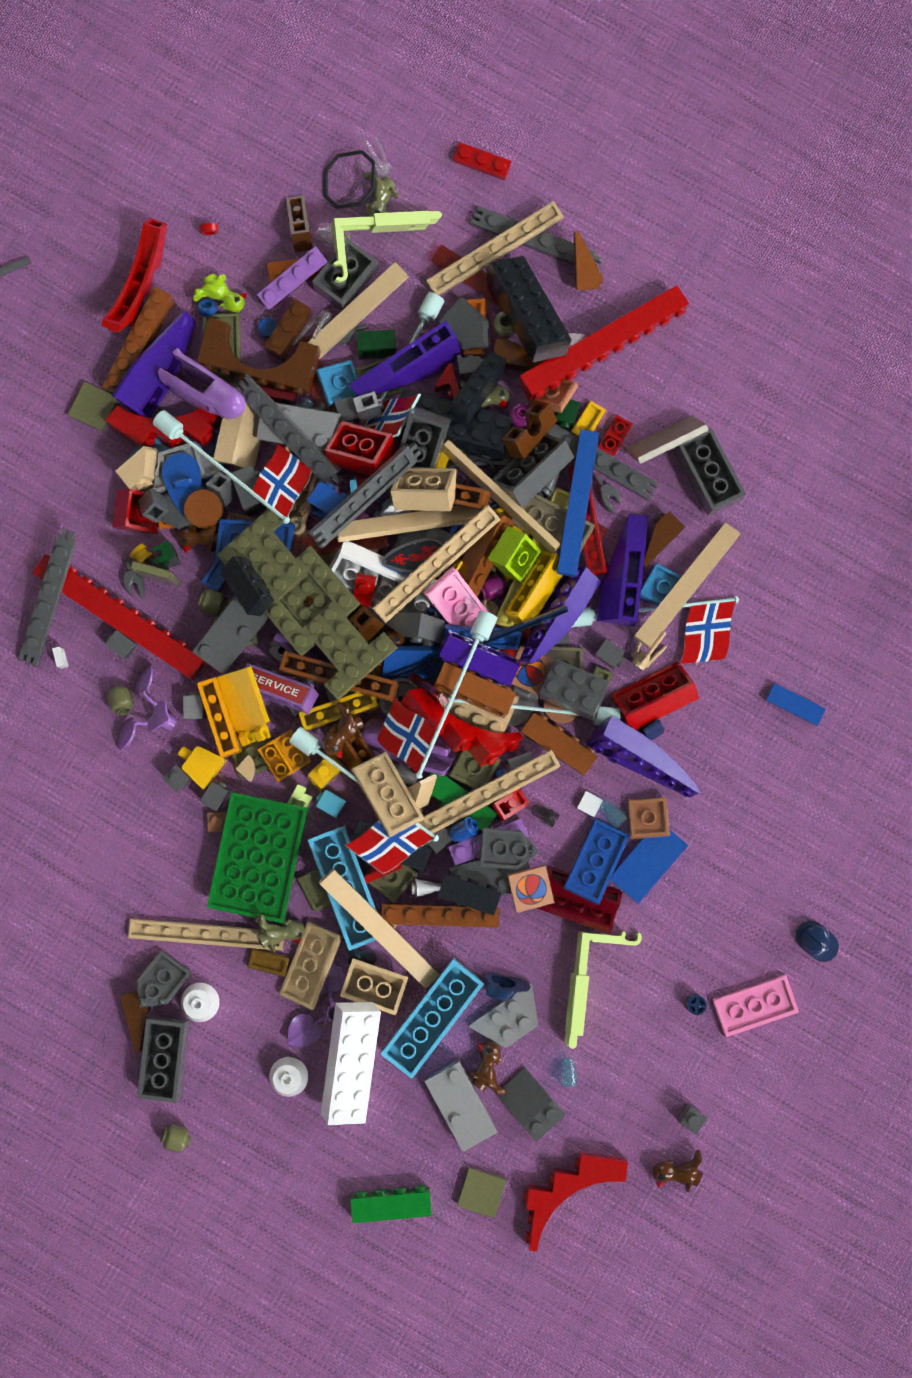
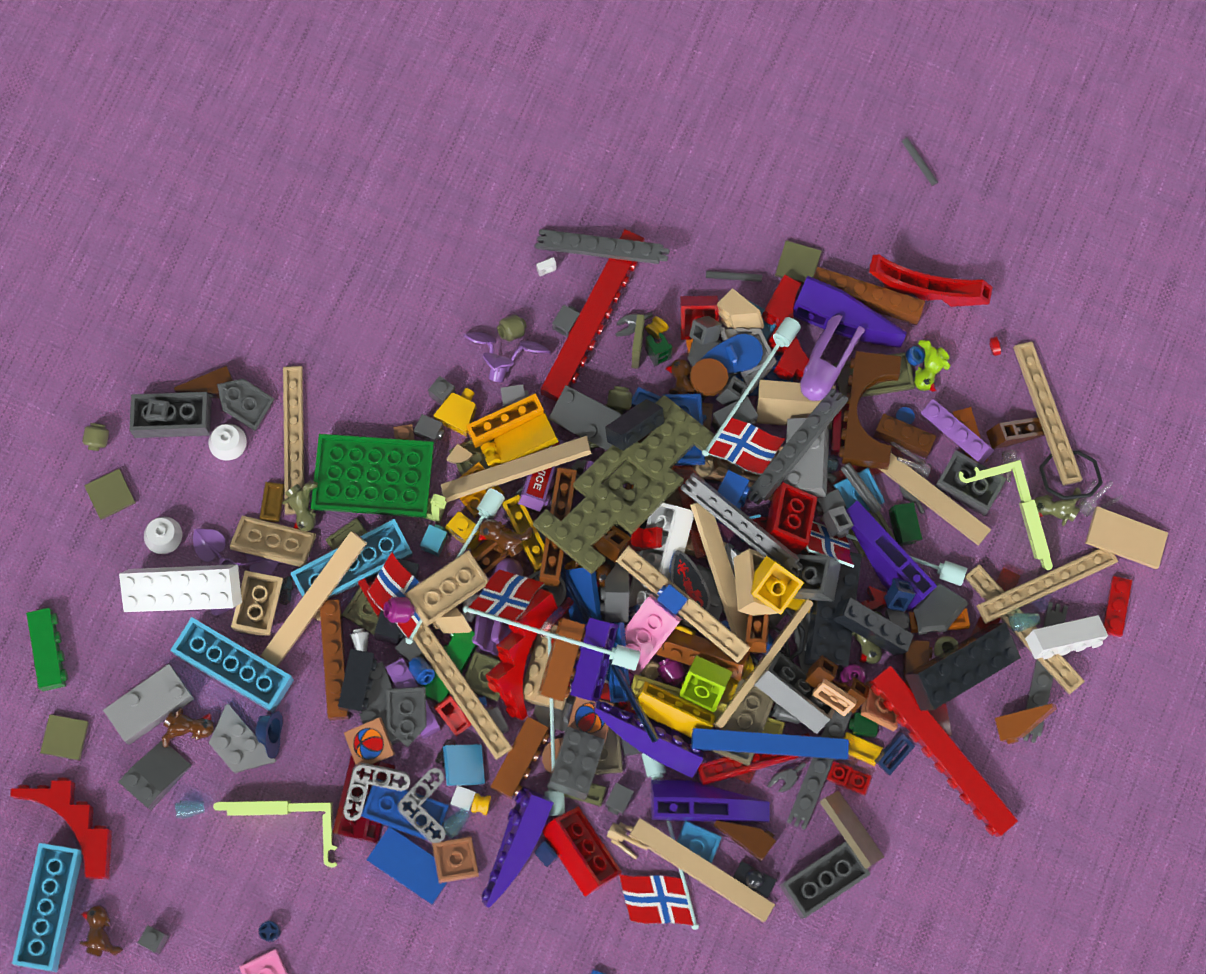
camera: 85 degrees right, 10 degrees down
(97, 472) = (734, 276): none -> dark grey bar
(158, 1071) = (157, 410): none -> dark grey tile
(237, 1128) = (109, 494): none -> olive tile
(273, 711) = (516, 469): none -> tan tile
(283, 191) = (1047, 413): none -> tan tile
(336, 379) = (861, 488): none -> dark grey axle
(406, 844) = (398, 609): none -> magenta head
(418, 139) = (1126, 537): none -> tan tile
(431, 470) = (774, 585): none -> yellow slope
(432, 572) = (671, 598): none -> blue brick
(450, 357) = (899, 595): none -> dark blue brick
(454, 220) = (1045, 584): none -> tan tile
(489, 246) = (1023, 621): none -> clear light blue cone
(510, 210) = (1067, 637): none -> white brick
(541, 432) = (836, 695): none -> light nougat tile
(559, 799) = (463, 765): none -> dark azure tile
(567, 896) = (364, 782): none -> light grey beam
(591, 848) = (416, 802): none -> light grey beam
(597, 389) = (892, 751): none -> dark blue tile
(598, 787) = (481, 804): none -> yellow wheel
(650, 1221) = (47, 907): none -> medium azure brick
(699, 538) = (754, 879): none -> black tile

